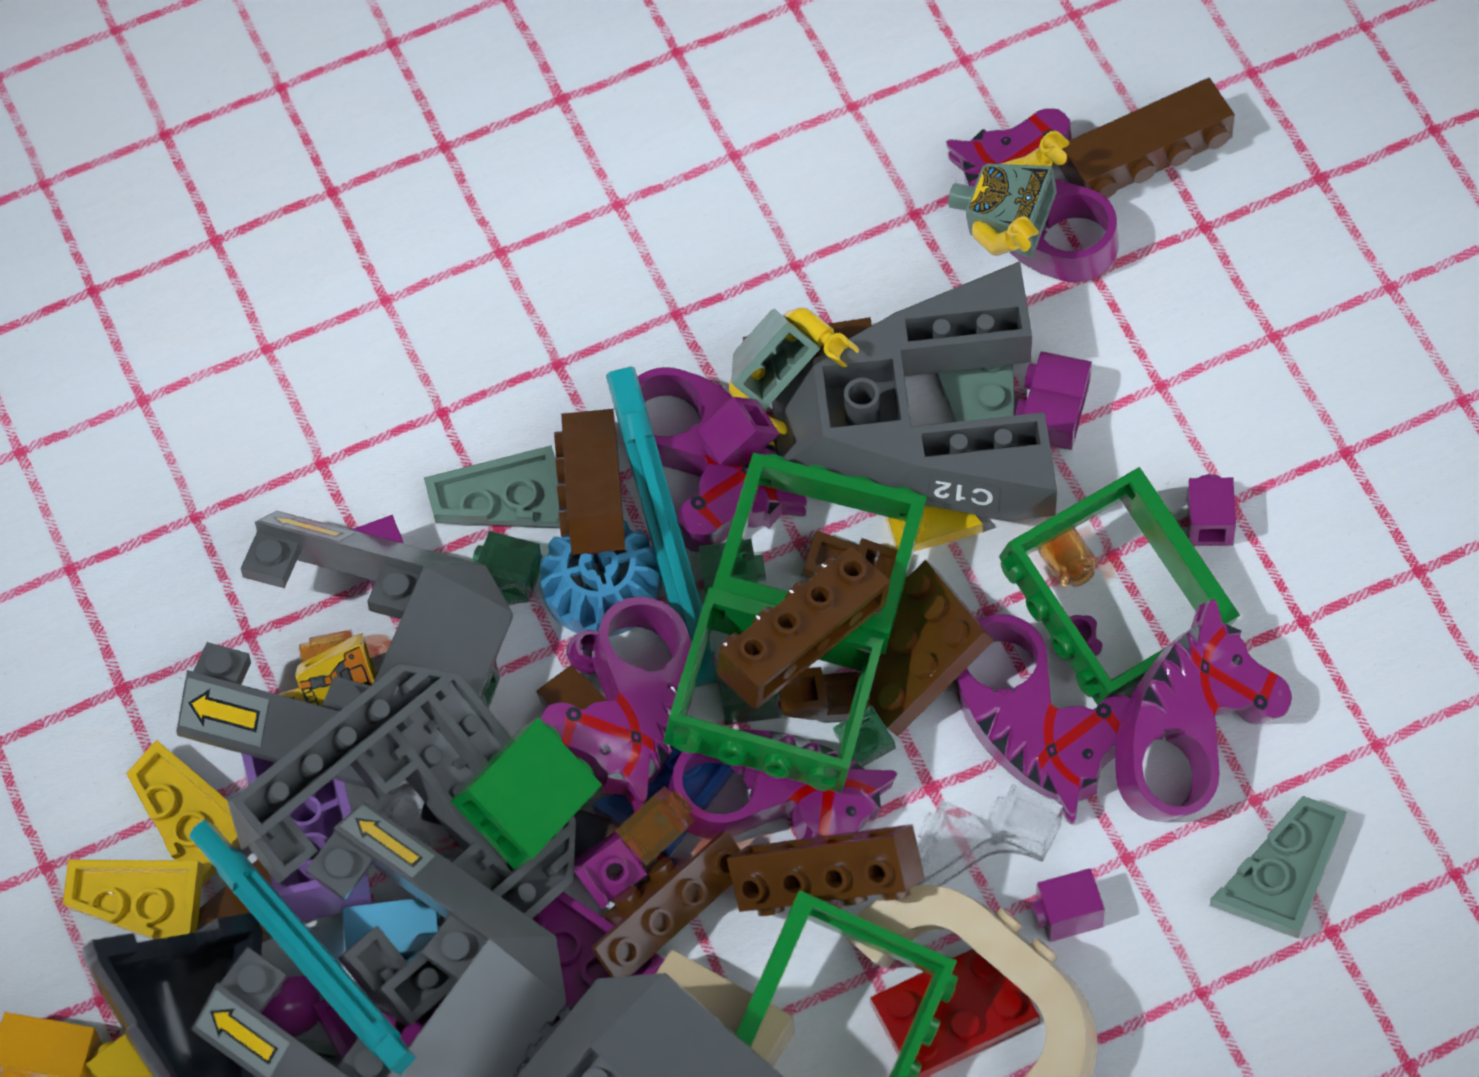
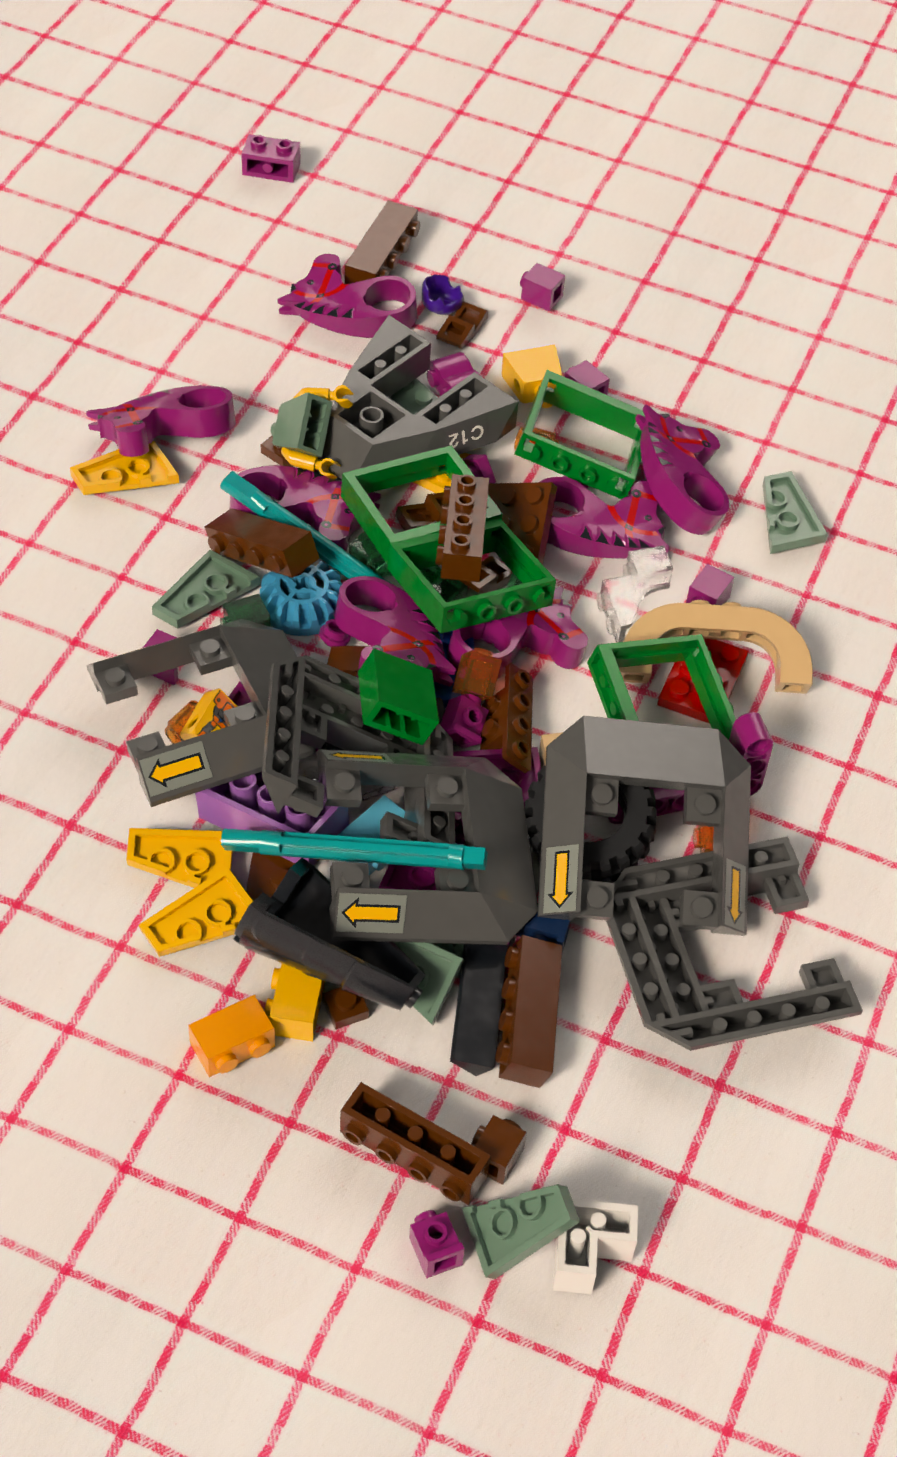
camera: 50 degrees left, 10 degrees down
(563, 271) = (120, 472): none -> yellow wing
(659, 222) = (171, 412): none -> magenta animal
(737, 432) = (320, 472): magenta brick -> none
(827, 868) = (601, 623): reddish brown brick -> none
(948, 547) = (480, 466): none -> magenta plate
(1012, 199) = (351, 297): torso -> none
(1143, 324) = (463, 326): none -> reddish brown slope
(1156, 259) = (440, 296): none -> dark purple hair
(1166, 449) = (526, 368): none -> yellow torso
(1296, 329) = (542, 286): none -> magenta brick

